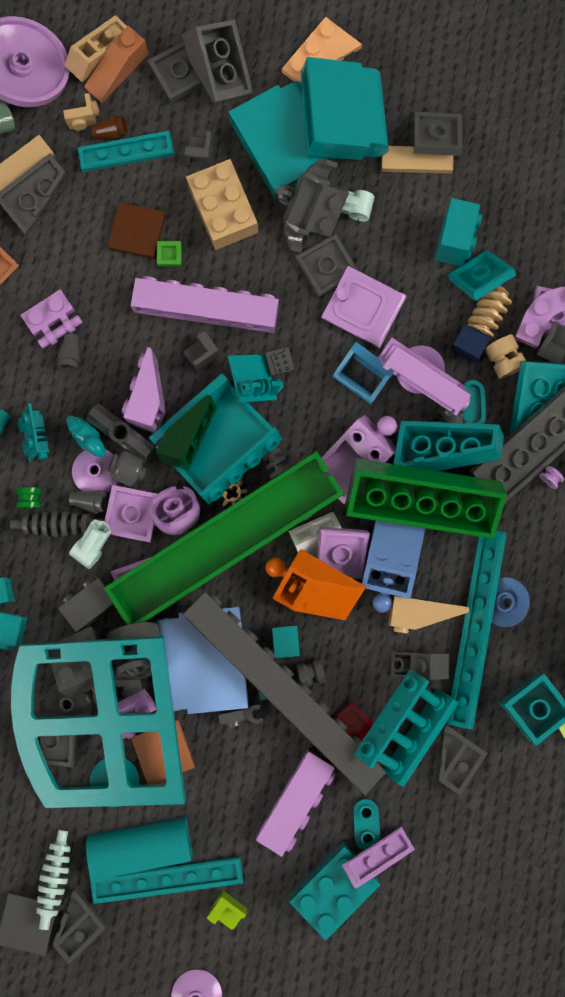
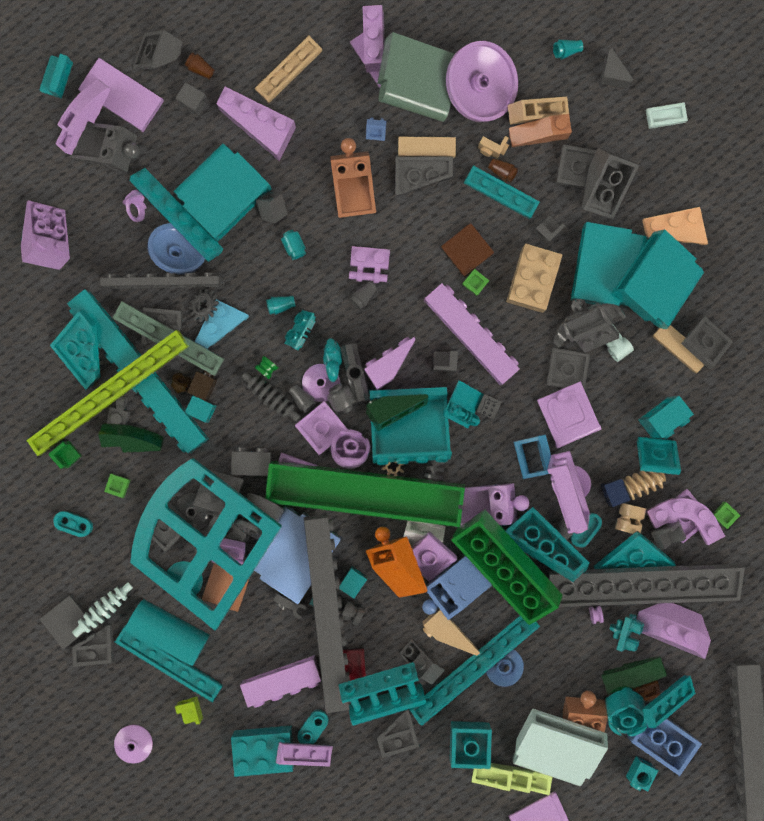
camera: 35 degrees right, 5 degrees up
(88, 548) = (280, 427): light aqua piece -> none

